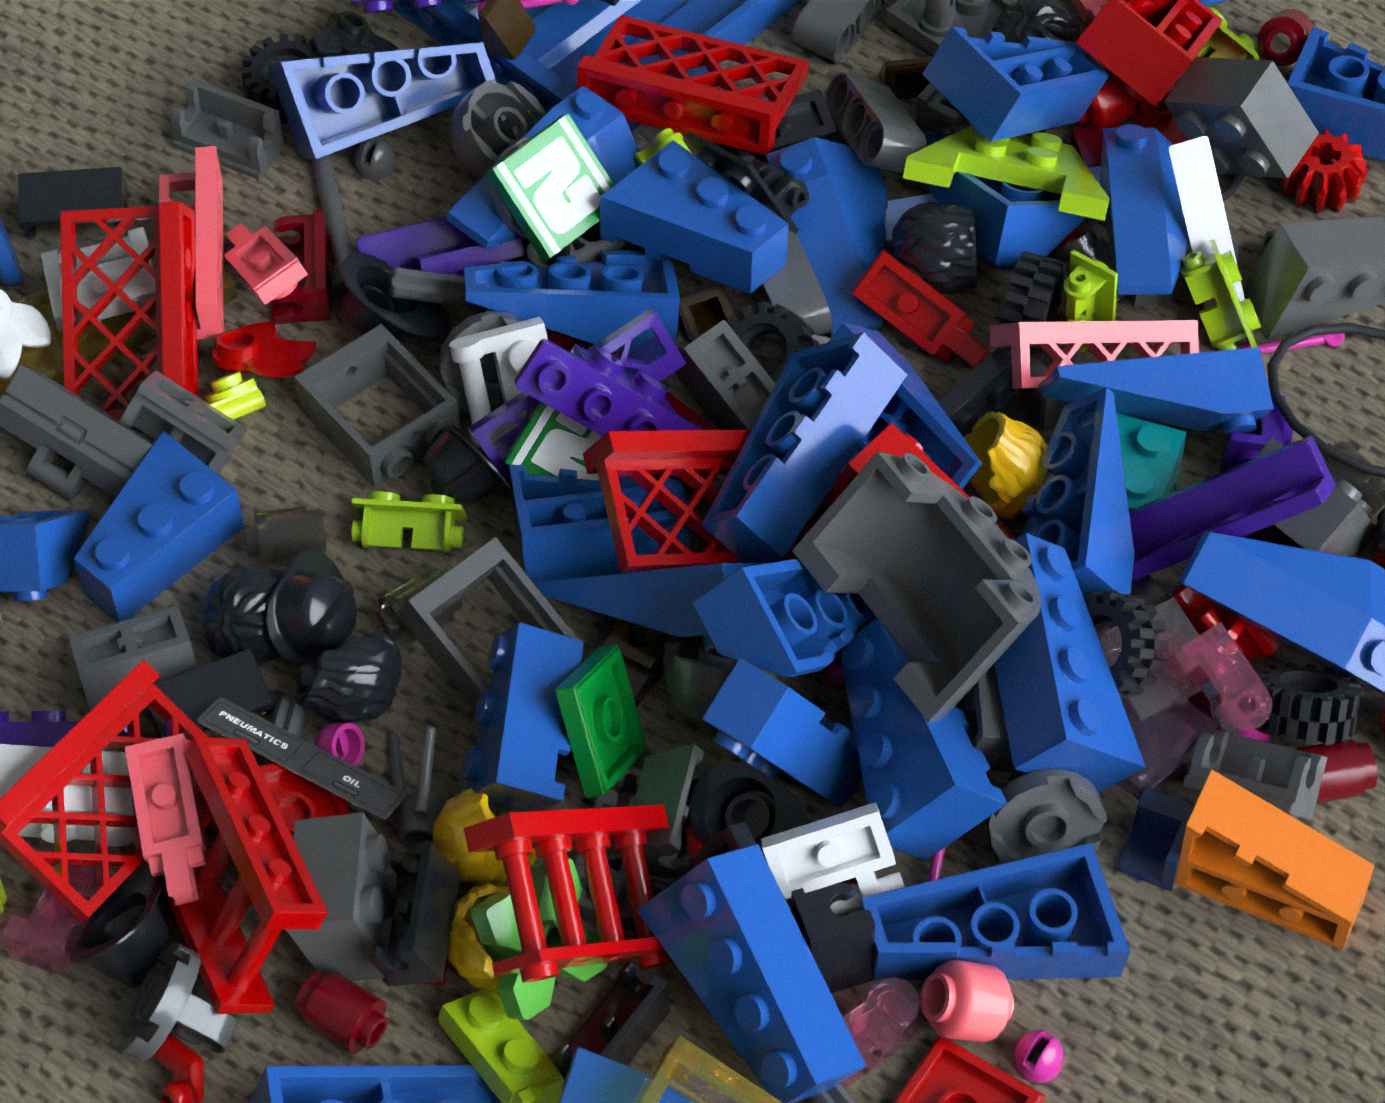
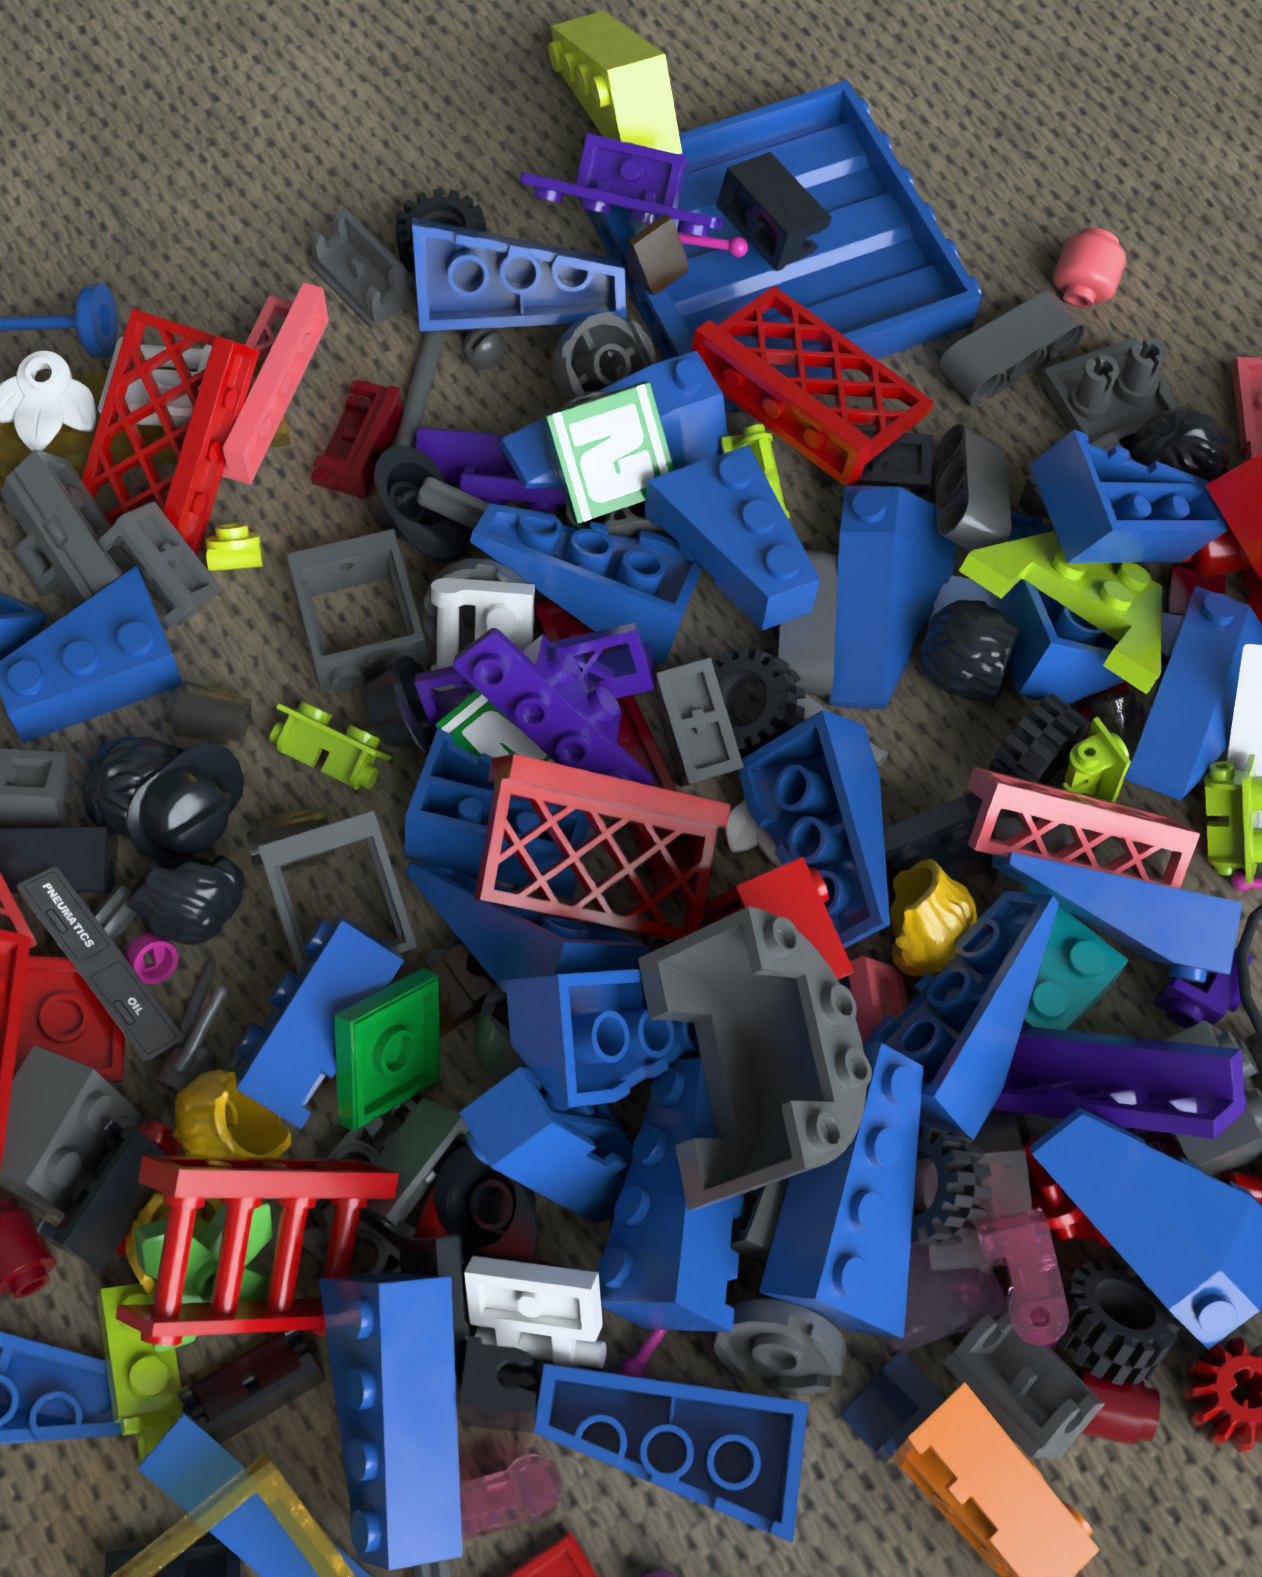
camera: 20 degrees right, 10 degrees up
(47, 193) = (186, 290): black hinge -> none
(260, 351) = (281, 511): red plate -> none
(263, 263) = (316, 423): coral hinge -> none
(348, 34) = (517, 216): black plate -> none
(703, 311) = (715, 631): dark brown slope -> none
(760, 180) = (818, 514): black hinge -> none
(801, 445) = (713, 833): blue wedge -> none
(905, 76) = (1026, 446): dark brown slope -> none
(919, 310) = (922, 711): red hinge -> none
(967, 1001) = (609, 1512): coral head -> none

